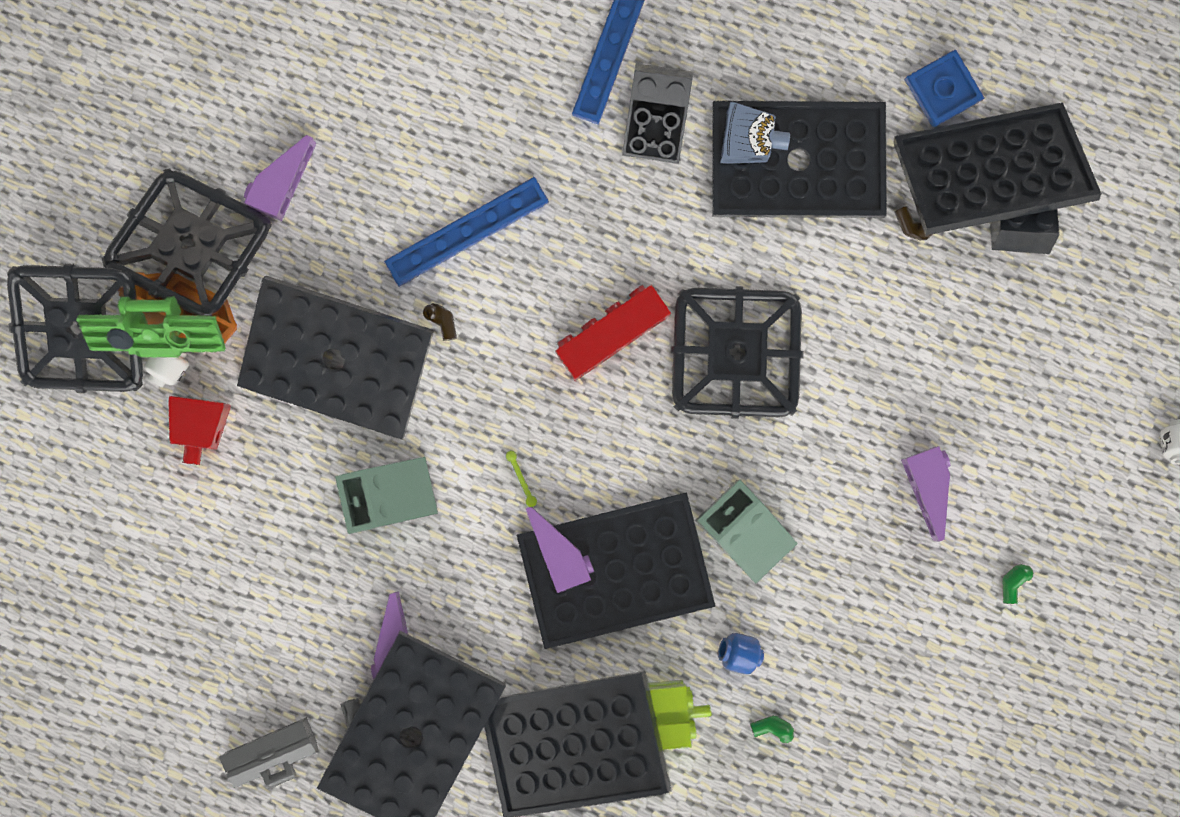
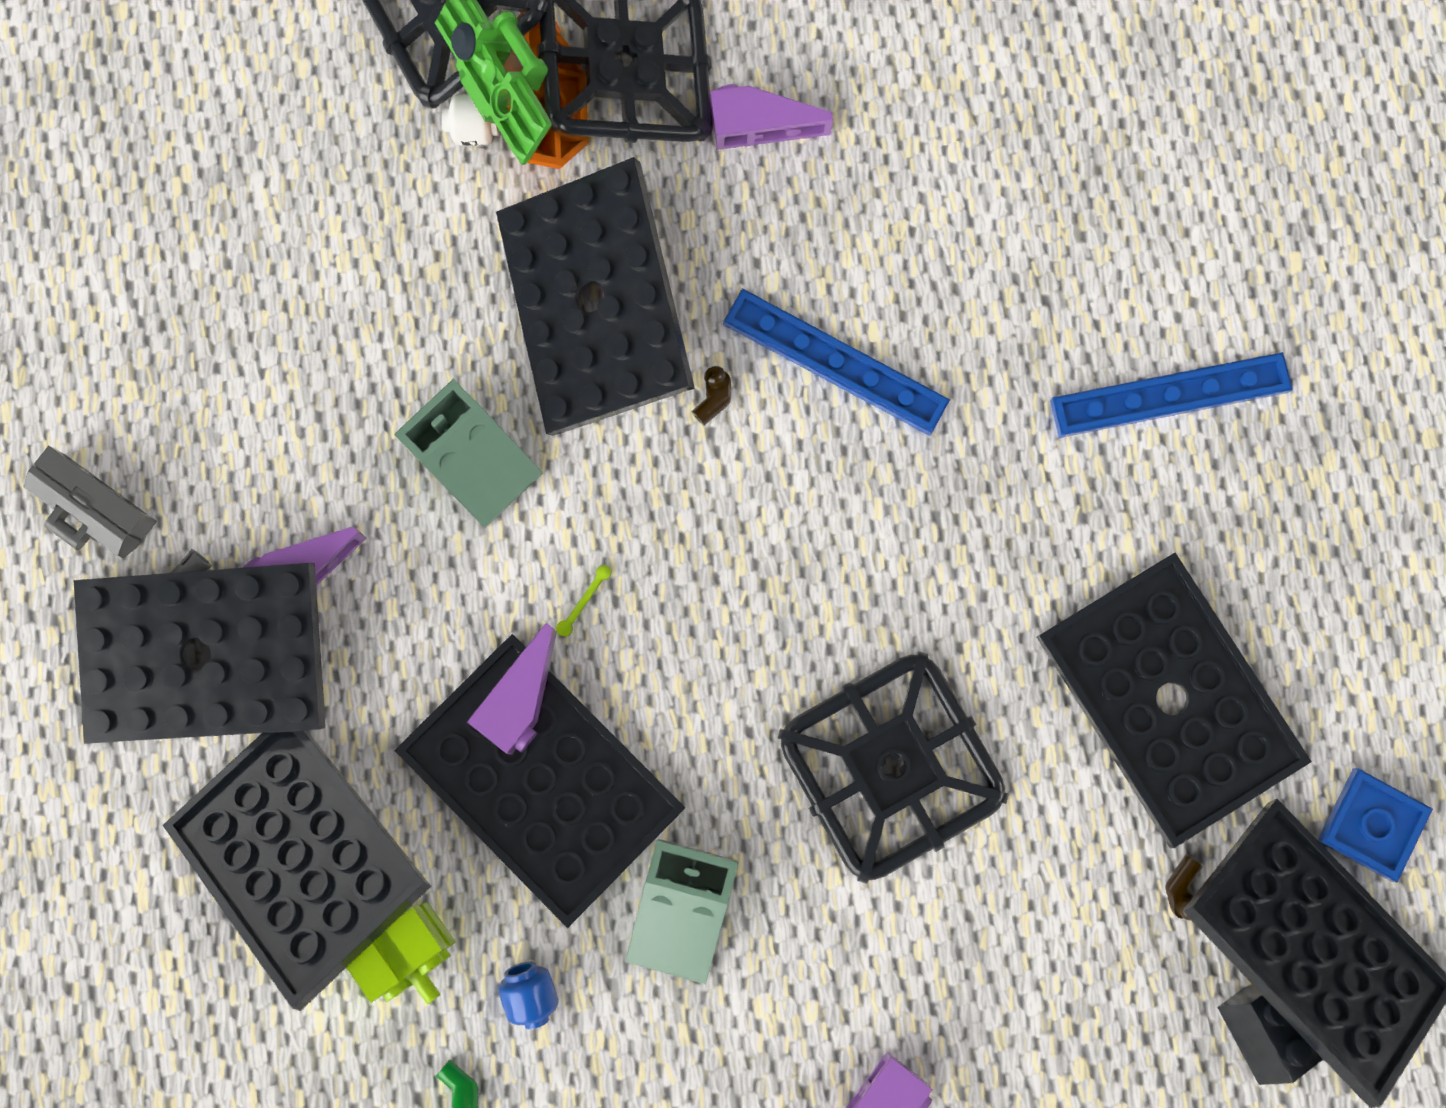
camera: 60 degrees right, 5 degrees down
(196, 425) = (422, 194): red torso -> none
(613, 332) = (823, 601): red brick -> none
(657, 113) = (1117, 496): black slope -> none
(750, 135) = (1163, 621): sand blue torso -> none

